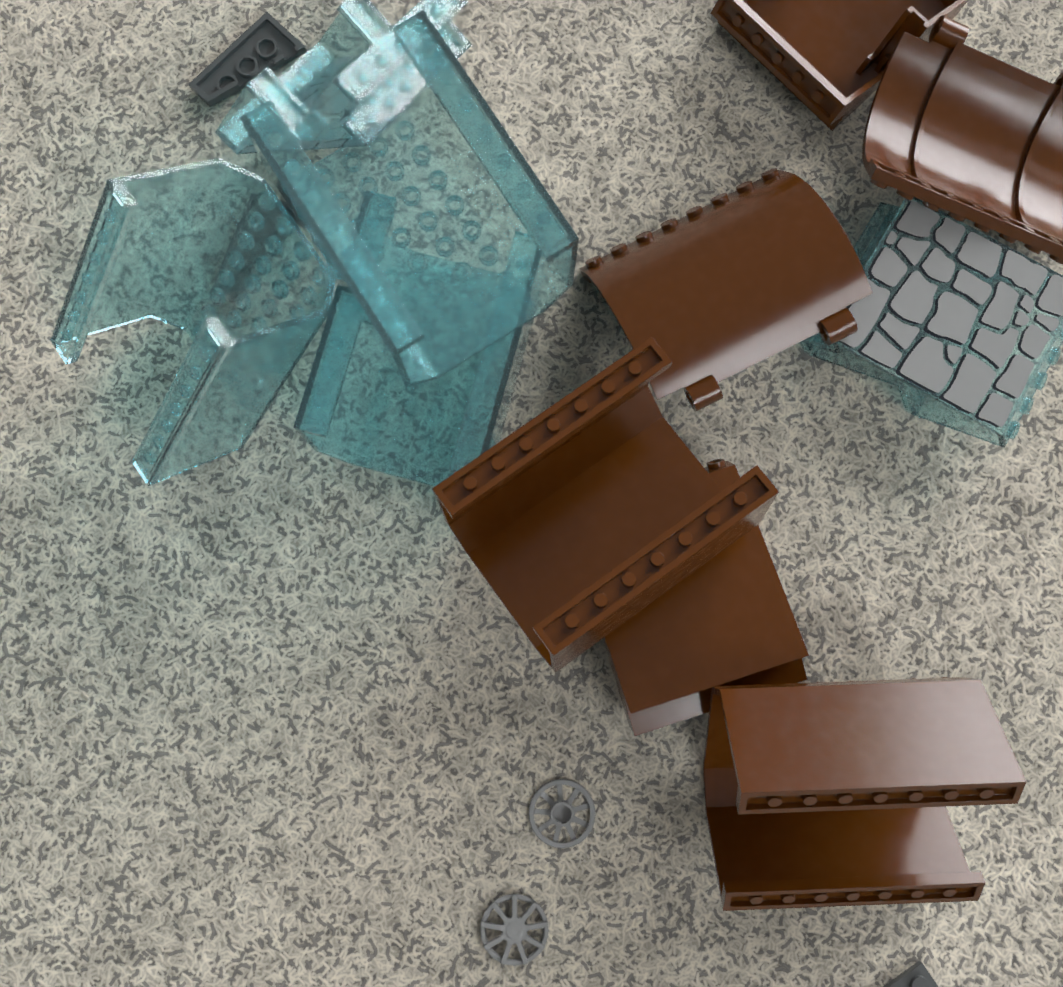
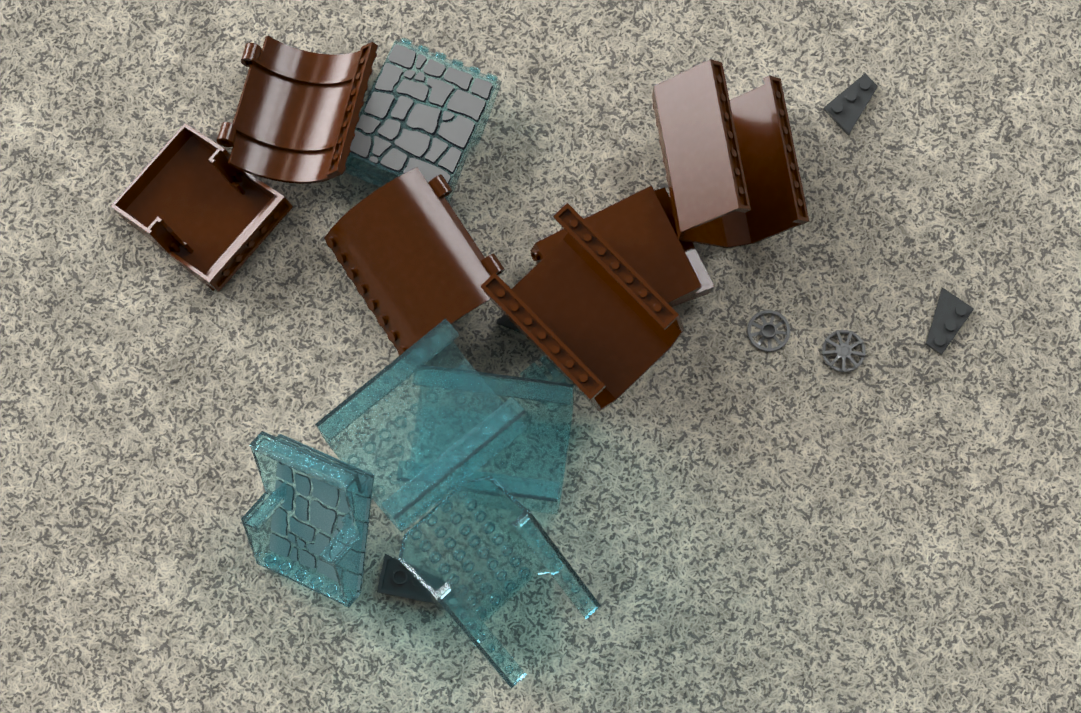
camera: 90 degrees left, 5 degrees down
(259, 46) = (273, 610): dark grey wing -> none

